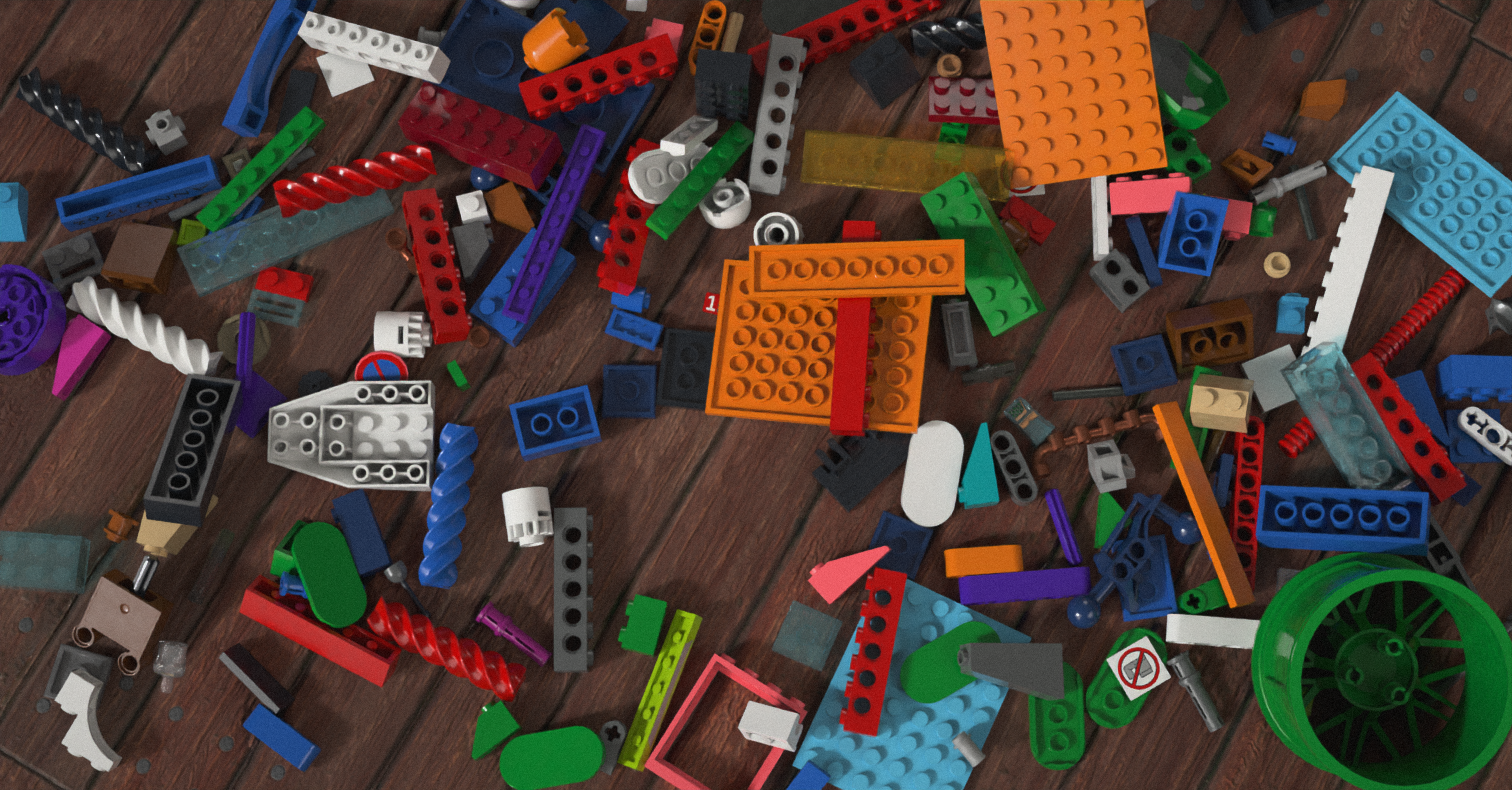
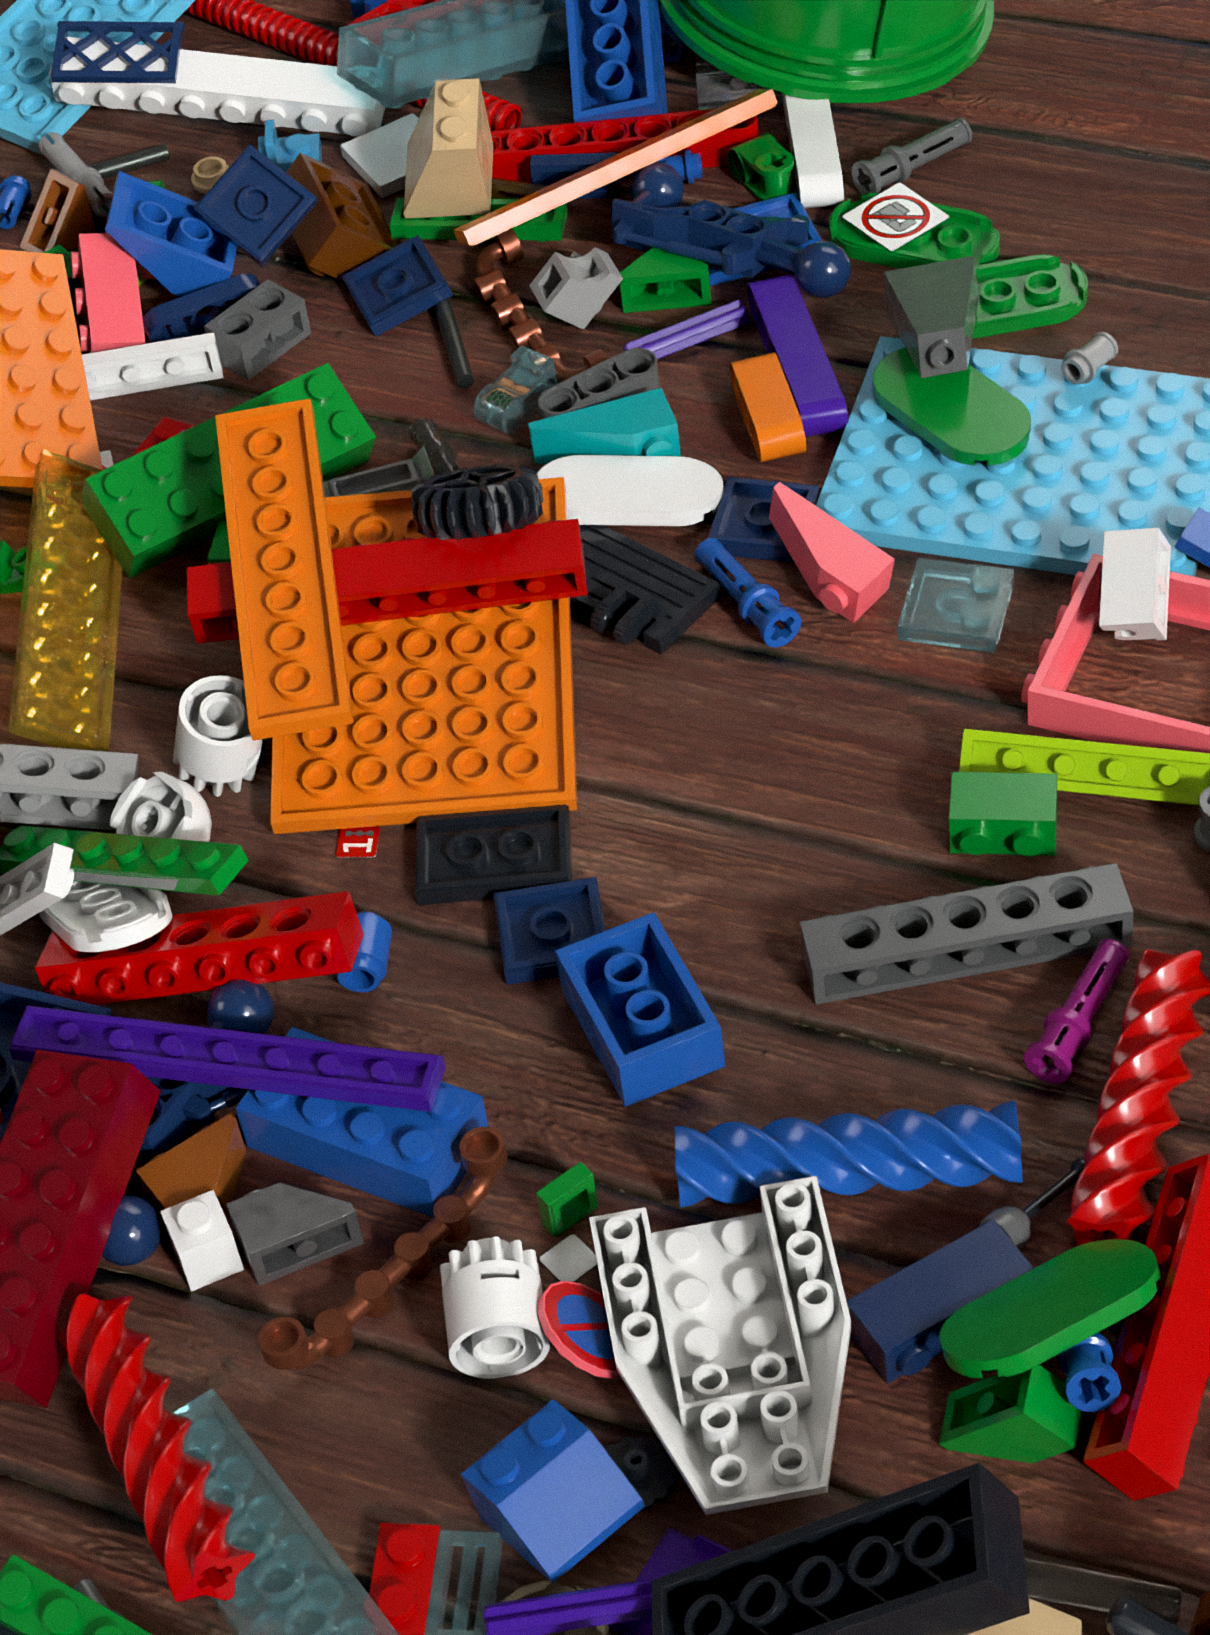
camera: 90 degrees left, 30 degrees down
(302, 348) = (551, 1491): none -> slope
(436, 374) = (569, 1259): none -> white sticker
(443, 326) = (334, 1264): red brick -> none
(528, 515) = (837, 1014): white gear -> none
(634, 329) = (426, 938): blue plate -> none
(826, 529) = (717, 562): none -> blue pin
(885, 361) = (477, 502): none -> black gear
(894, 585) = (965, 485): red brick -> none
(1203, 282) = (255, 205): none -> dark blue tile
(1390, 223) = (136, 72): none -> dark blue window

